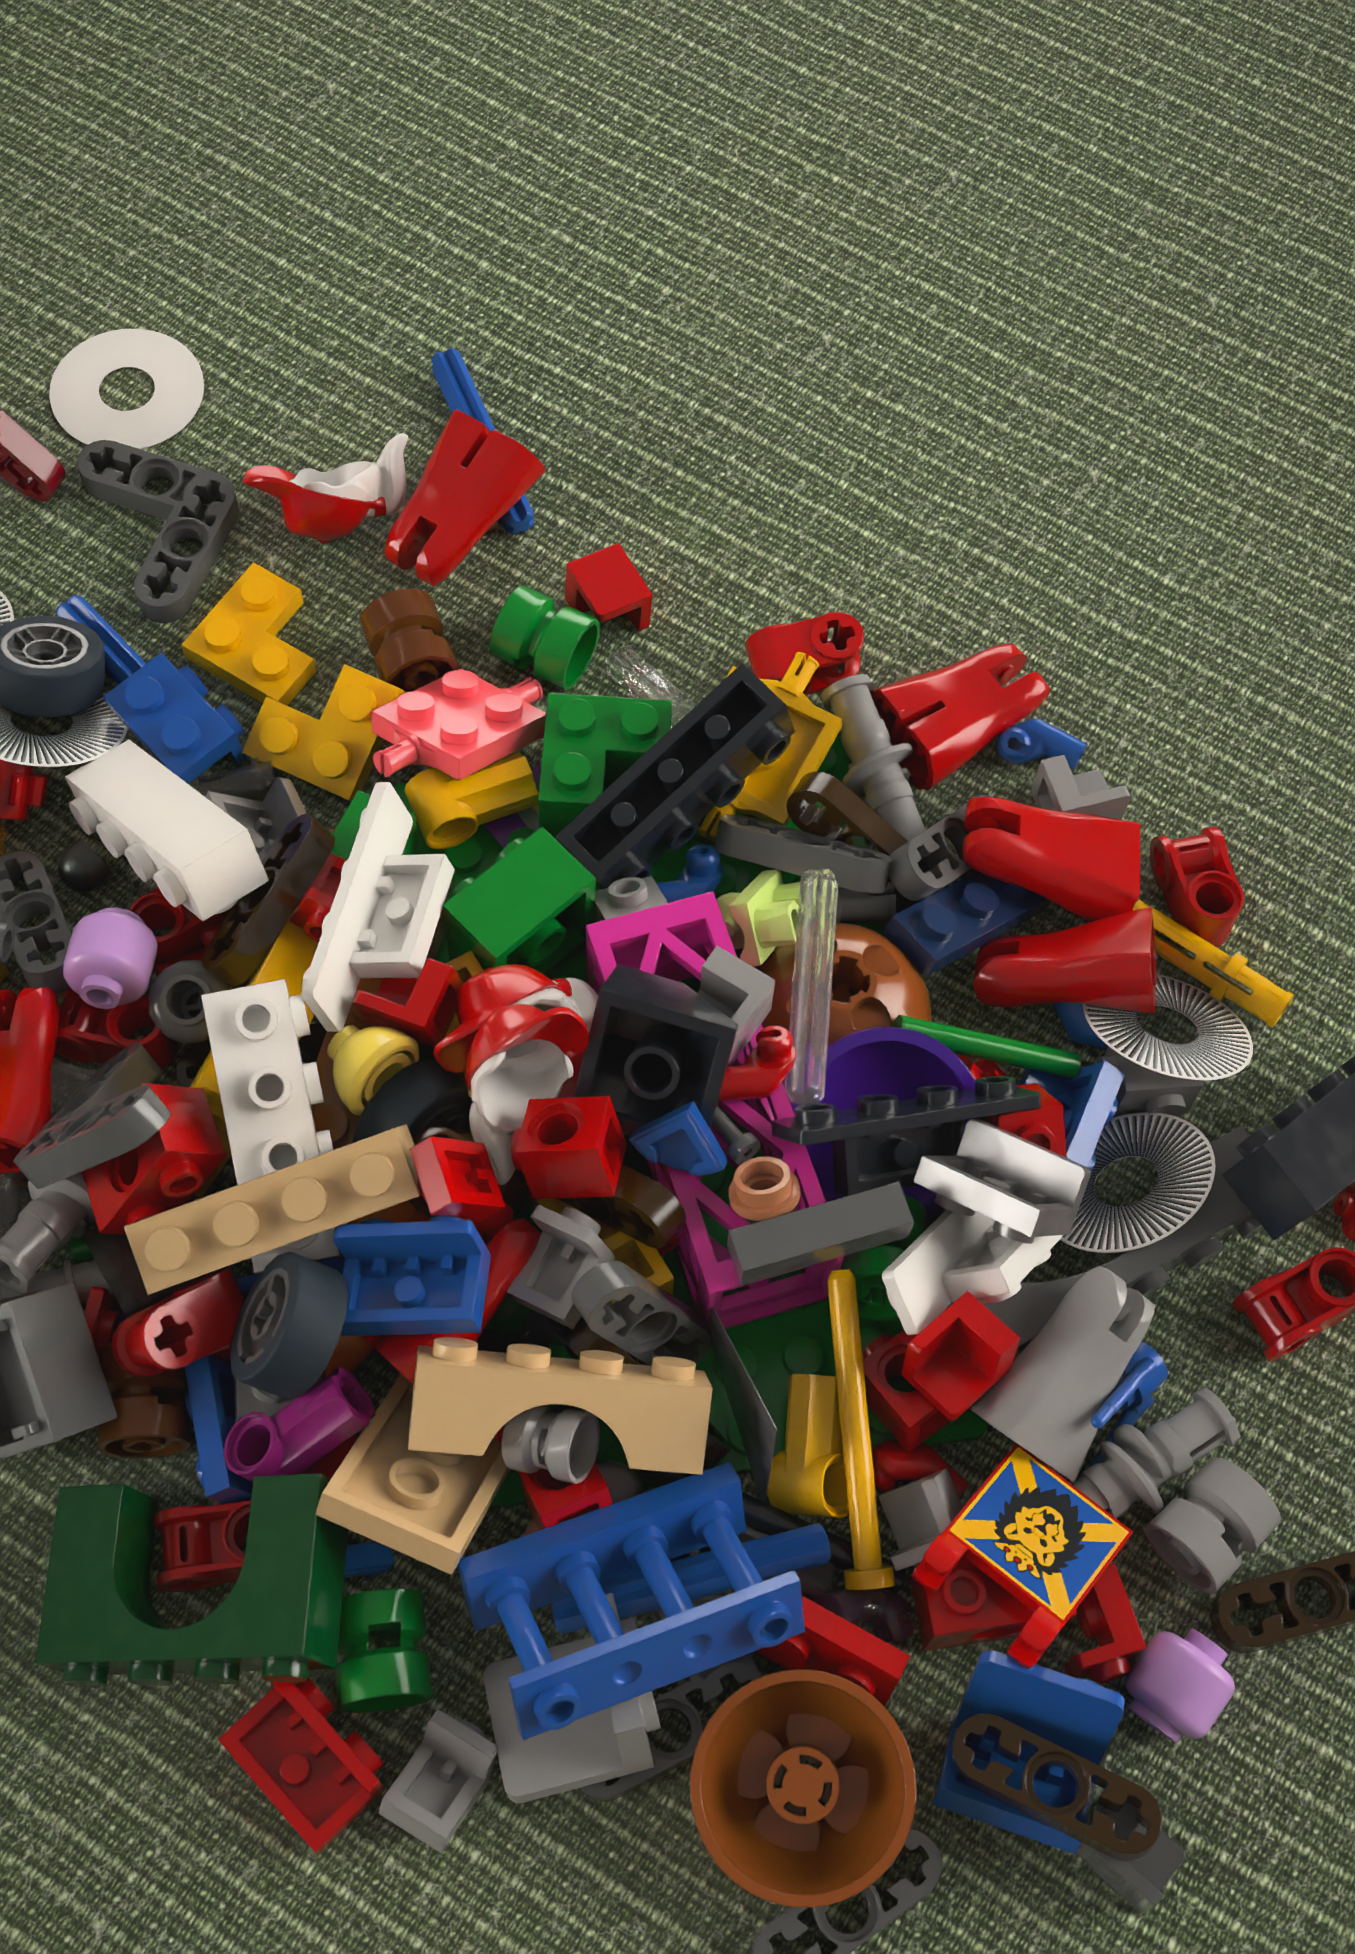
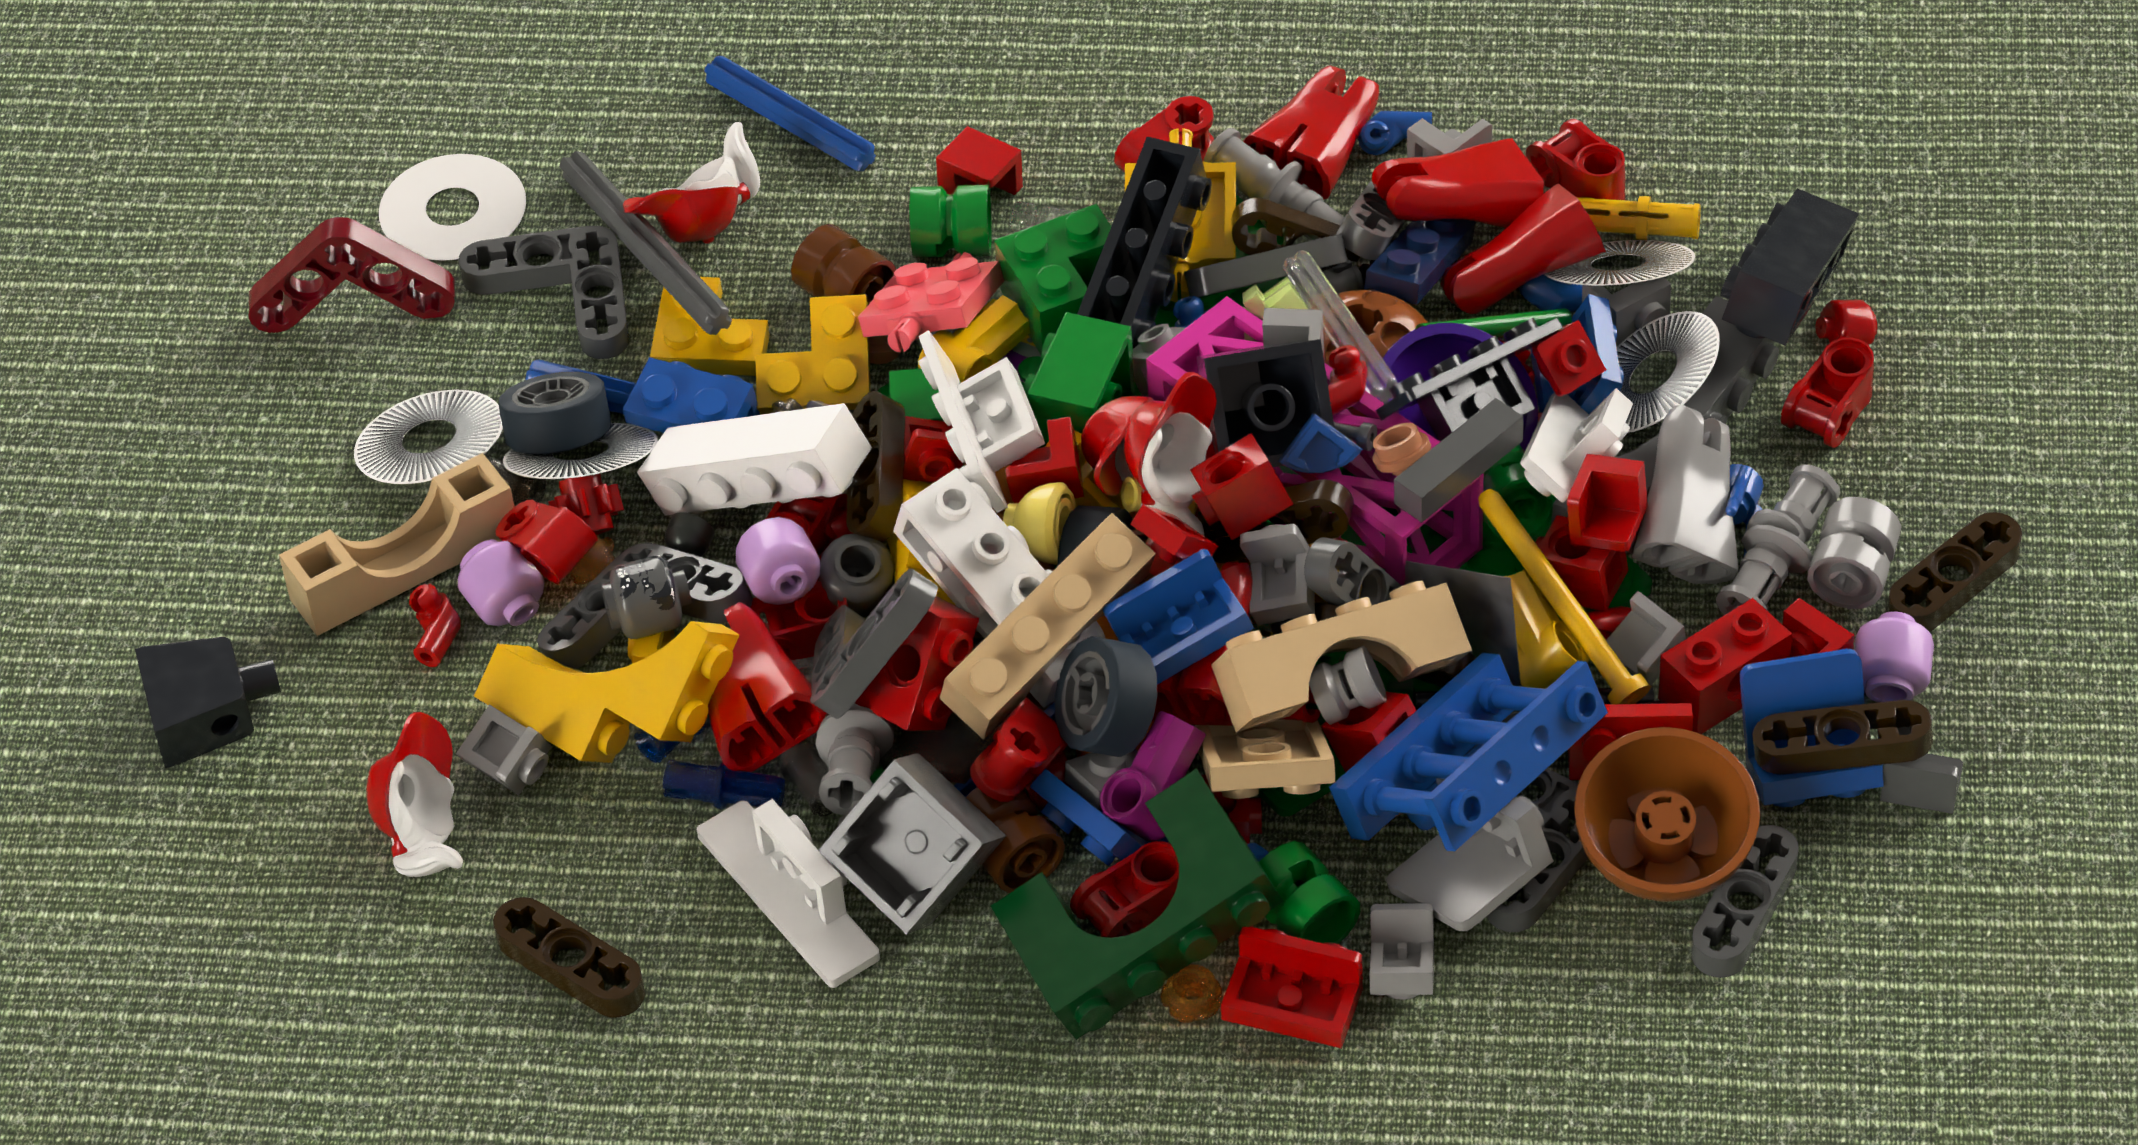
camera: 20 degrees left, 15 degrees down
(212, 1718) = (1192, 981): none -> clear orange plate
(249, 526) = (646, 244): none -> dark grey axle
(460, 496) = (810, 148): red piece -> none
(1008, 1180) = (1571, 375): bracket -> none
(1033, 1540) = (1731, 598): flag -> none

